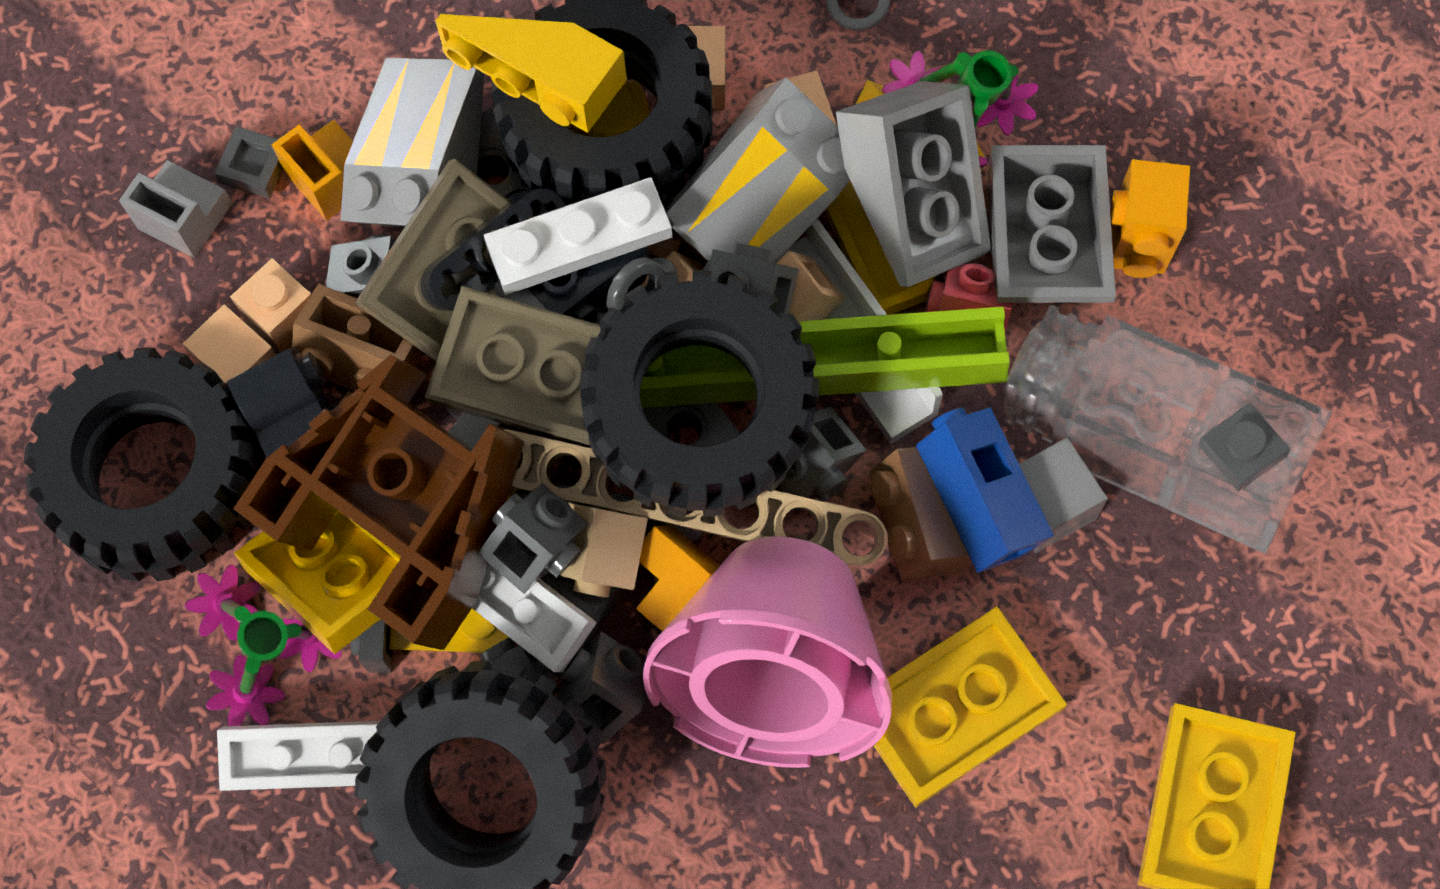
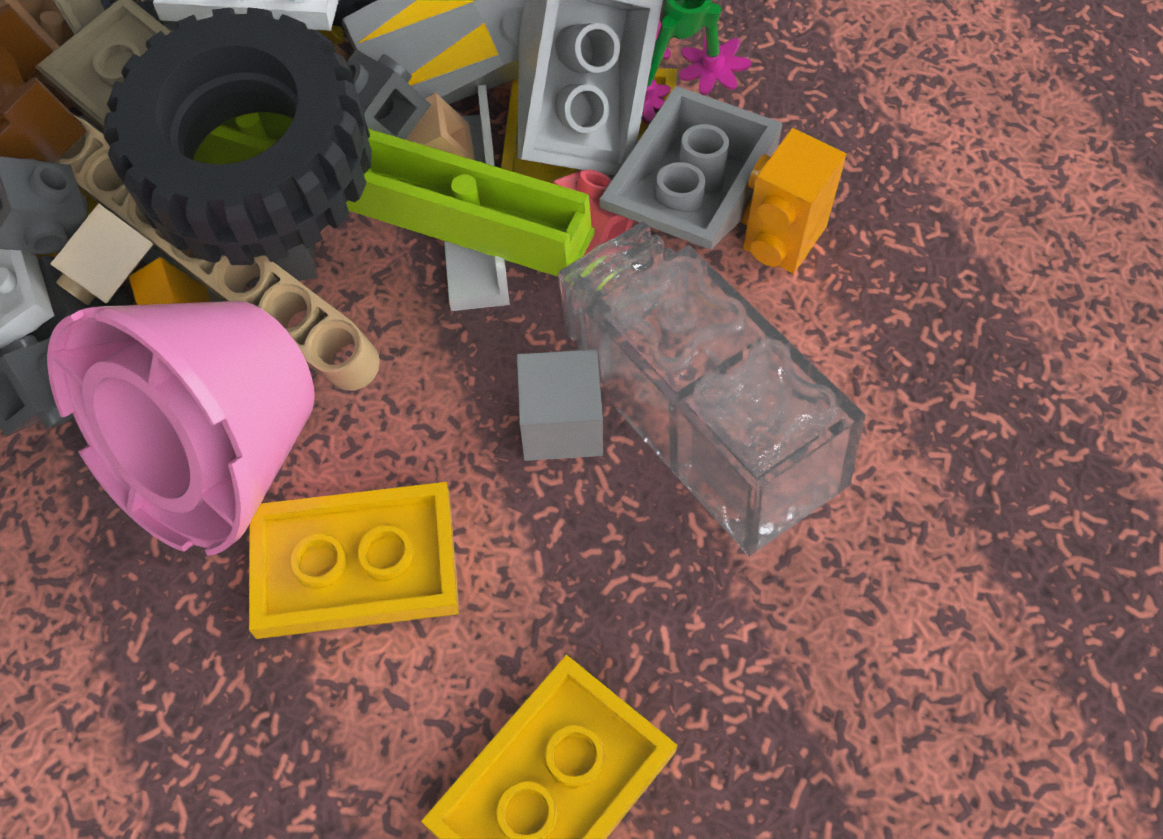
camera: 25 degrees right, 10 degrees down
(825, 459) = (361, 275): dark grey brick -> none
(915, 518) = (433, 368): medium nougat brick -> none
(983, 488) = (484, 358): blue brick -> none
(1244, 447) = (746, 401): dark grey plate -> none

